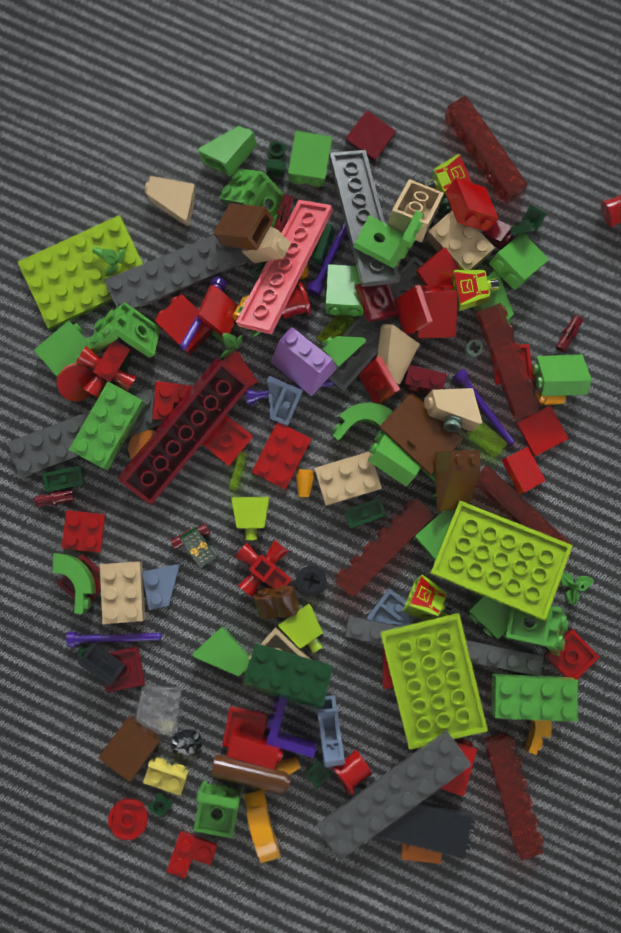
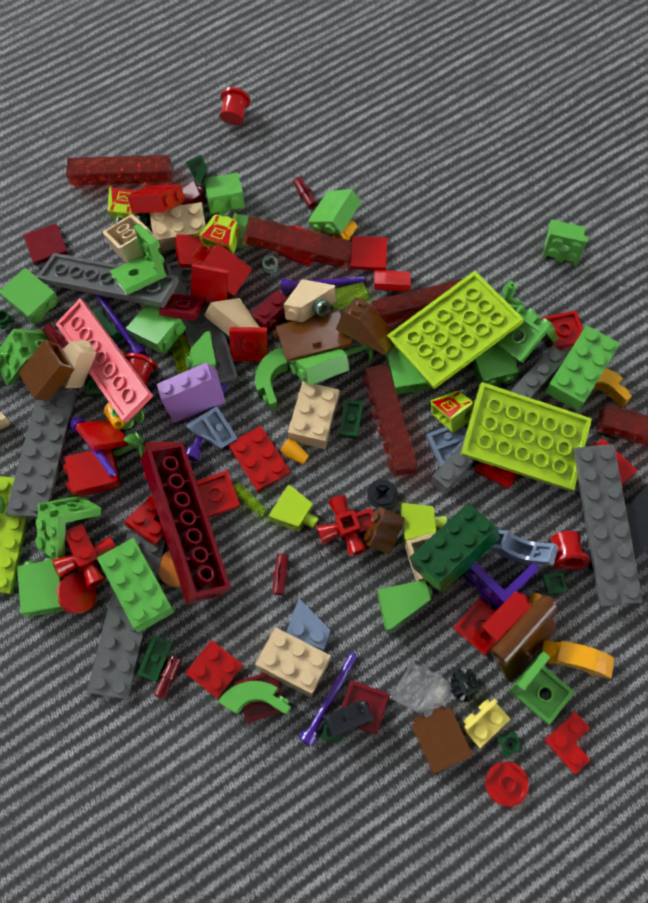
camera: 55 degrees left, 15 degrees down
(198, 547) = (294, 571): dark green tile -> none
(276, 168) = (16, 322): dark green plate -> none

